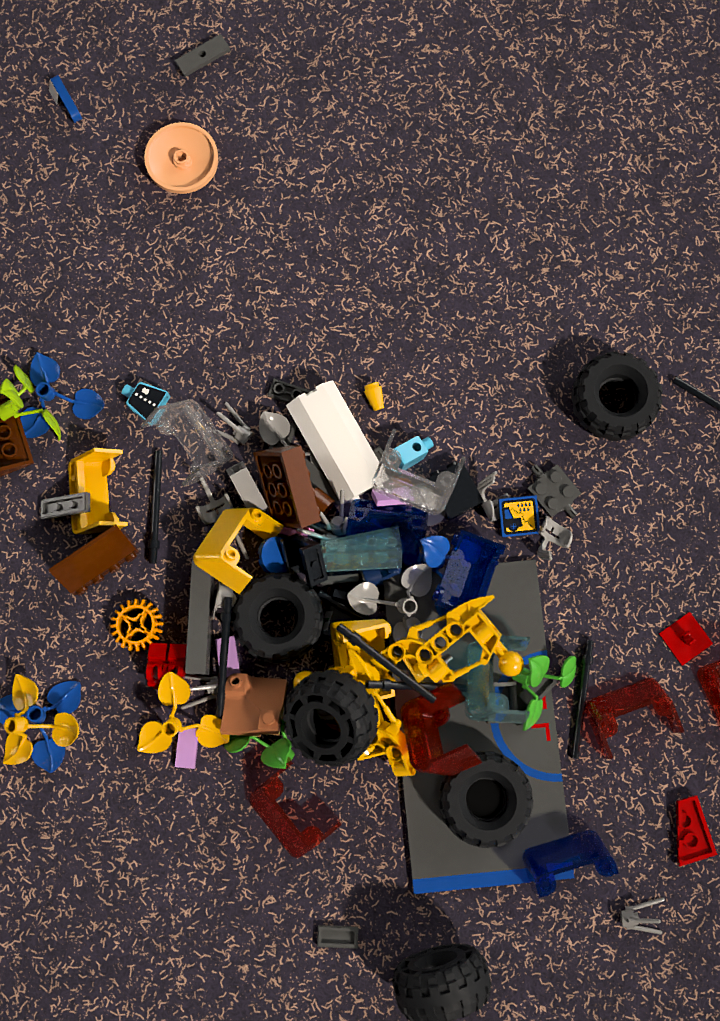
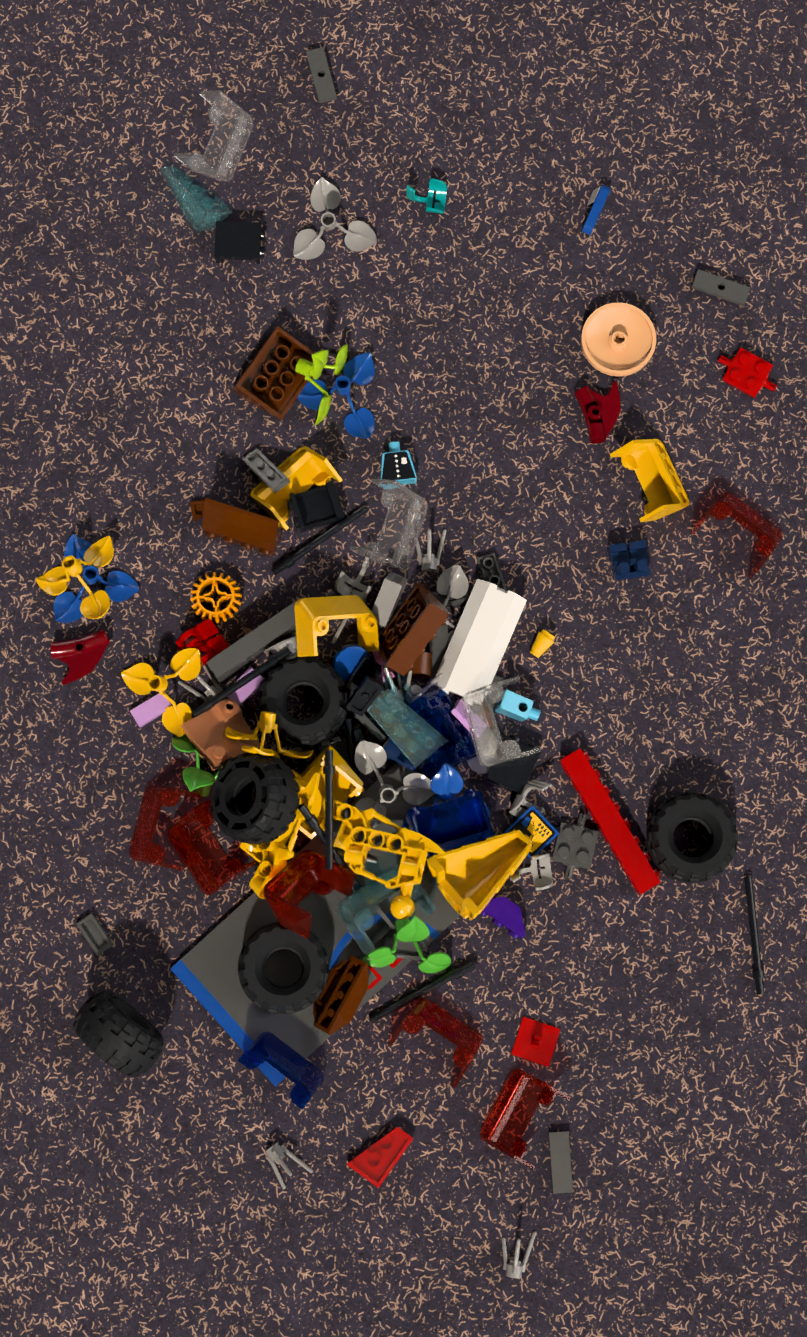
camera: 50 degrees right, 0 degrees up
(52, 585) = (197, 509): none -> reddish brown tile
(102, 777) = (80, 661): none -> dark red pin
(127, 489) = (316, 507): none -> black panel
(226, 215) = (605, 407): none -> dark red pin
(276, 662) = (266, 725): none -> yellow plant
(284, 86) = (747, 372): none -> red plate
(310, 212) = (656, 477): none -> yellow windscreen
(339, 794) = (202, 852): none -> clear red windscreen
(361, 281) = (629, 560): none -> dark blue hips
(379, 175) = (767, 534): none -> clear red windscreen
(523, 581) = (478, 870): none -> yellow cone
(542, 767) = (341, 995): none -> reddish brown wedge
(555, 449) = (609, 821): none -> red brick
(567, 587) = (505, 914): none -> dark purple slope

